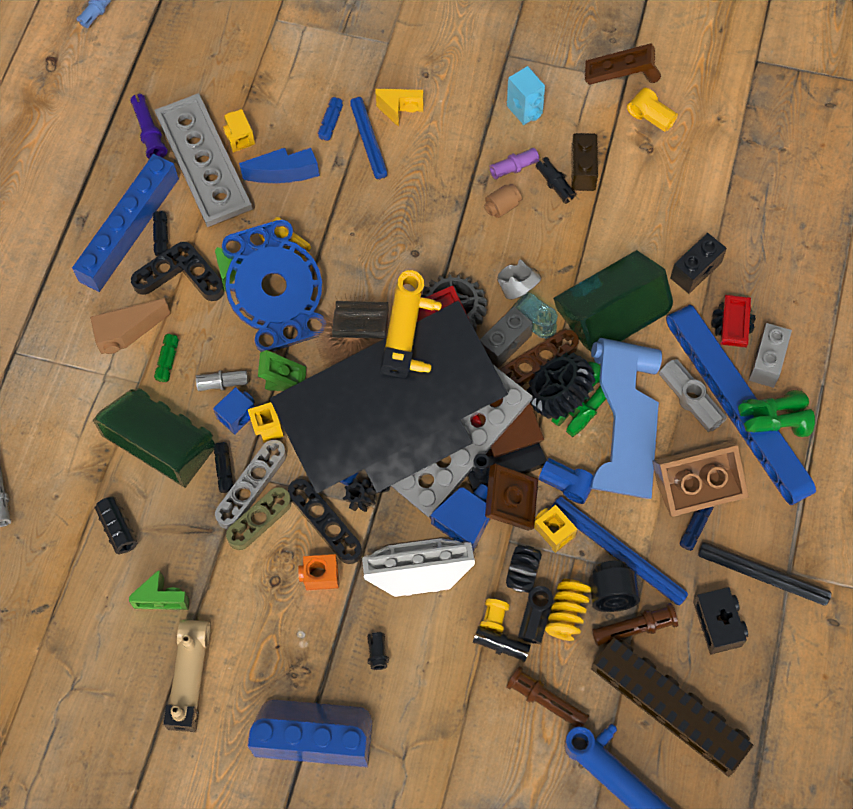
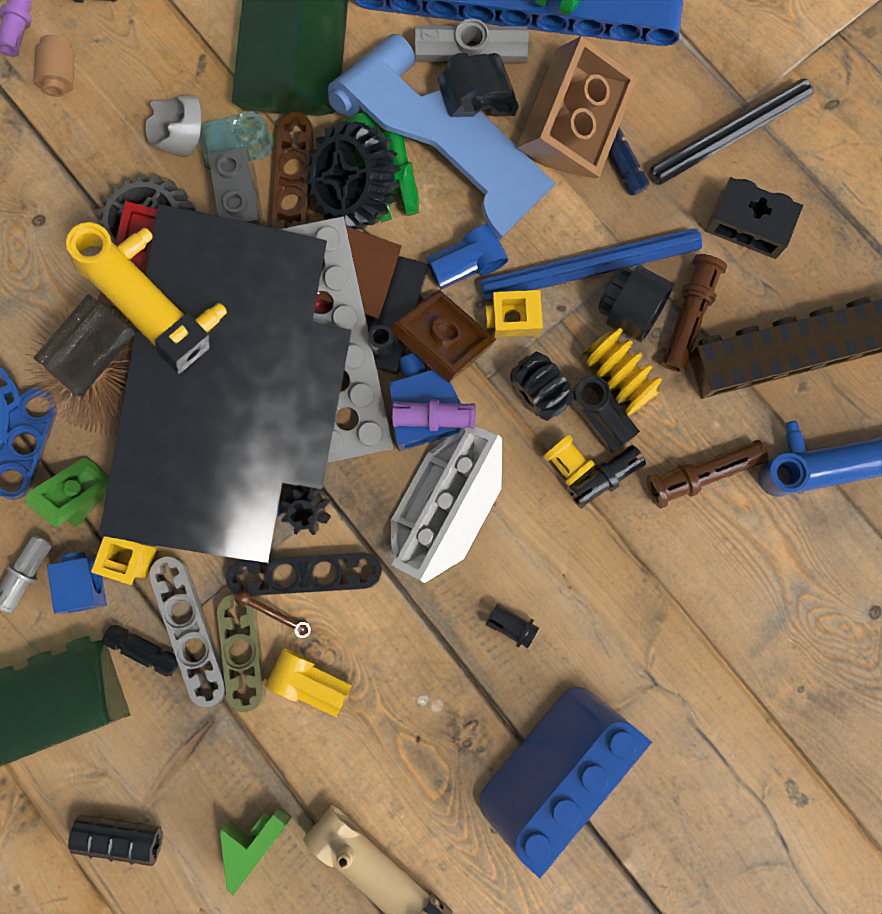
camera: 55 degrees left, 15 degrees up
(266, 558) = (298, 678): none -> yellow piece
(293, 541) = (301, 628): none -> reddish brown hinge
(328, 580) = (379, 614): orange brick -> none
(460, 520) = (434, 415): none -> medium lavender pin
(668, 414) = (477, 85): none -> black cylinder

